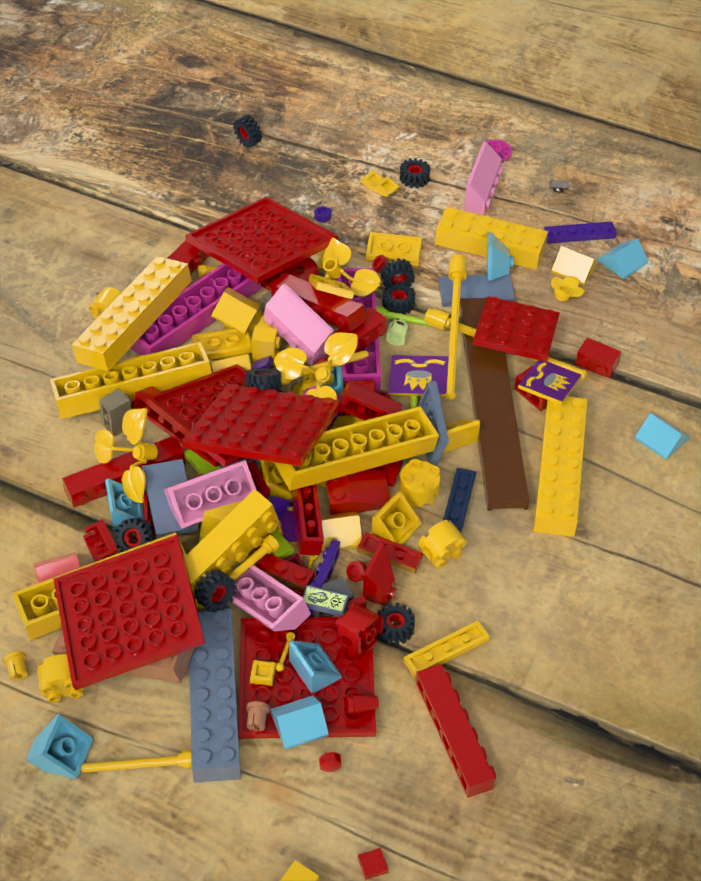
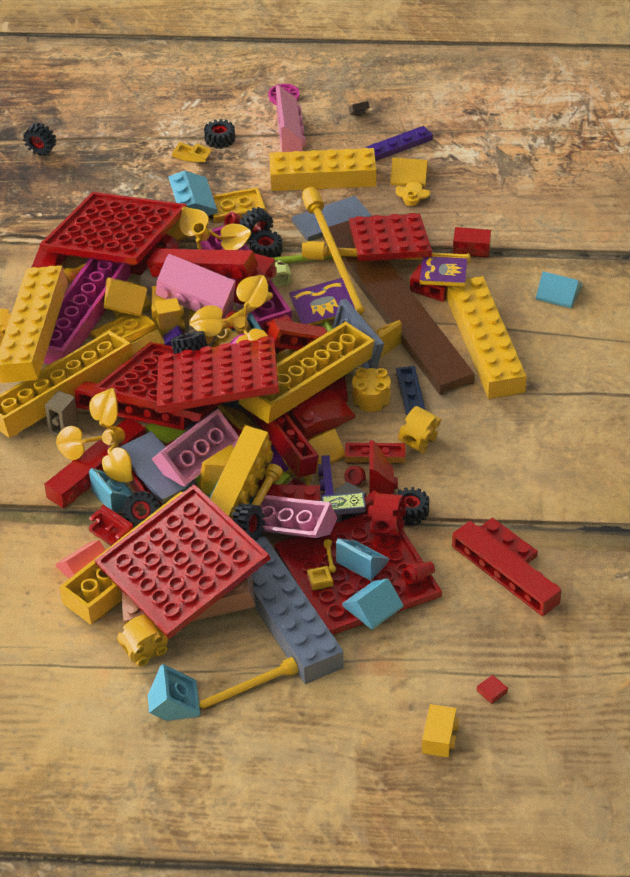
camera: 20 degrees left, 5 degrees down
(16, 665) = (92, 646): yellow bush -> none
(257, 715) = (334, 607): nougat bush -> none
(322, 214) = (152, 193): dark purple tile -> none
(330, 762) = (415, 626): red tile -> none
(331, 286) = (210, 245): yellow tile -> none
(356, 226) = (193, 191): none -> medium azure slope
(395, 520) = (367, 424): yellow slope -> none
(447, 648) = (465, 509): yellow plate -> none
(473, 699) = (510, 540): none -> red plate
(498, 258) = (340, 185): medium azure slope -> none
(625, 258) = (451, 153): medium azure slope -> none

